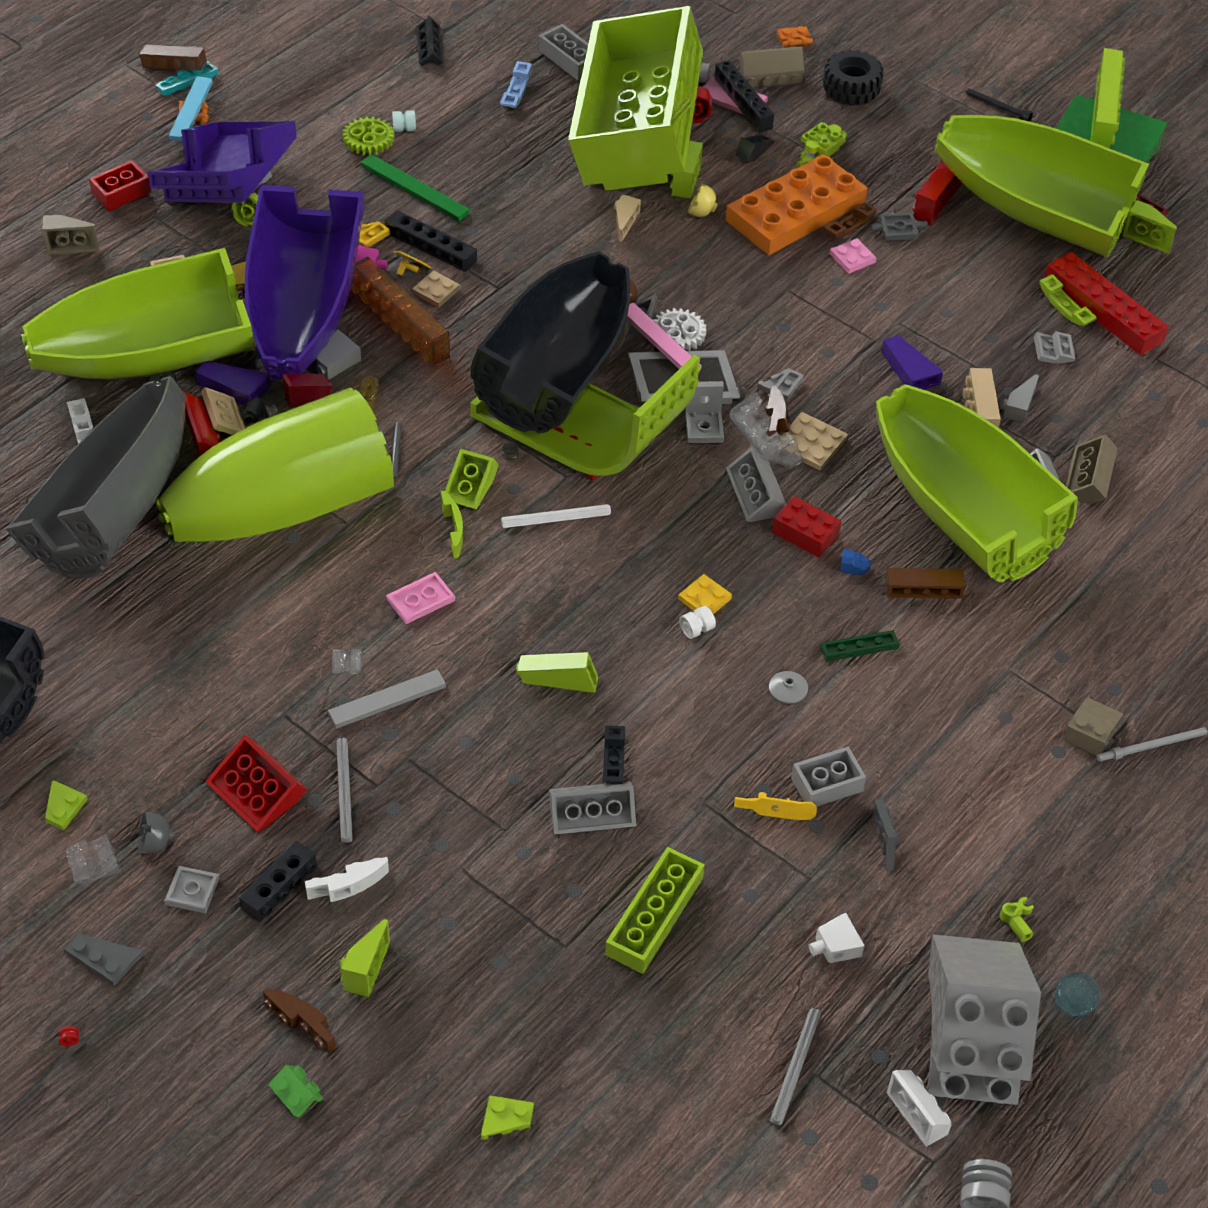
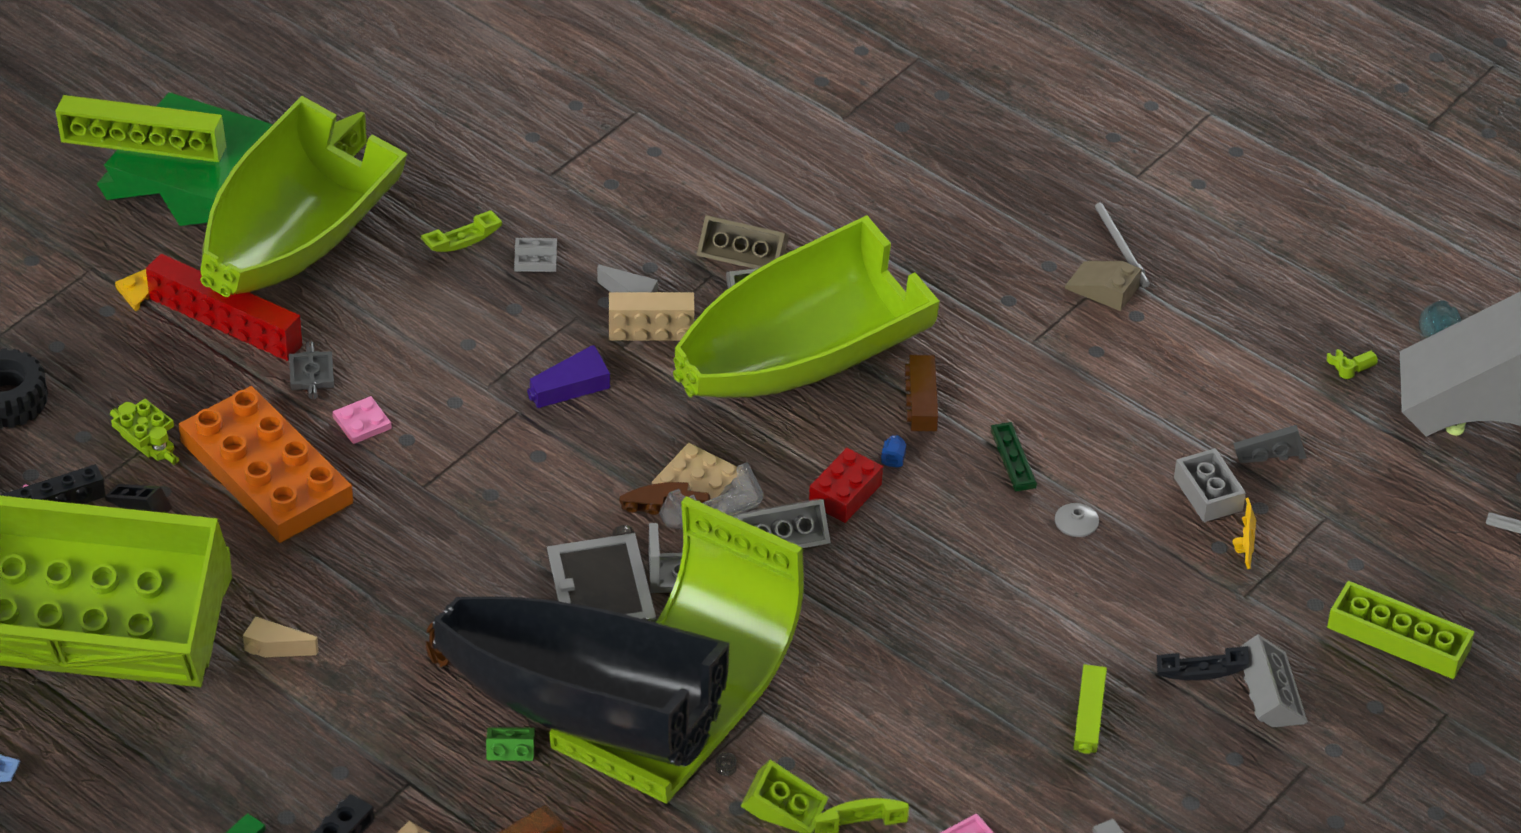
camera: 90 degrees left, 5 degrees down
(555, 516) = (836, 719): white axle -> none
(657, 336) = (570, 582): bright pink tile -> none
(682, 327) = (507, 582): white gear -> none
(697, 621) = (1001, 585): white wheel -> none
(703, 202) = (256, 557): light yellow cylinder -> none
(705, 593) = (953, 584): yellow plate -> none
(786, 382) = (602, 496): light grey wing -> none
(837, 940) = (1405, 493): white torso -> none
(853, 222) = (300, 417): reddish brown slope -> none
(1023, 114) = (96, 234): black piece -> none
(1108, 303) = (461, 199): red brick -> none

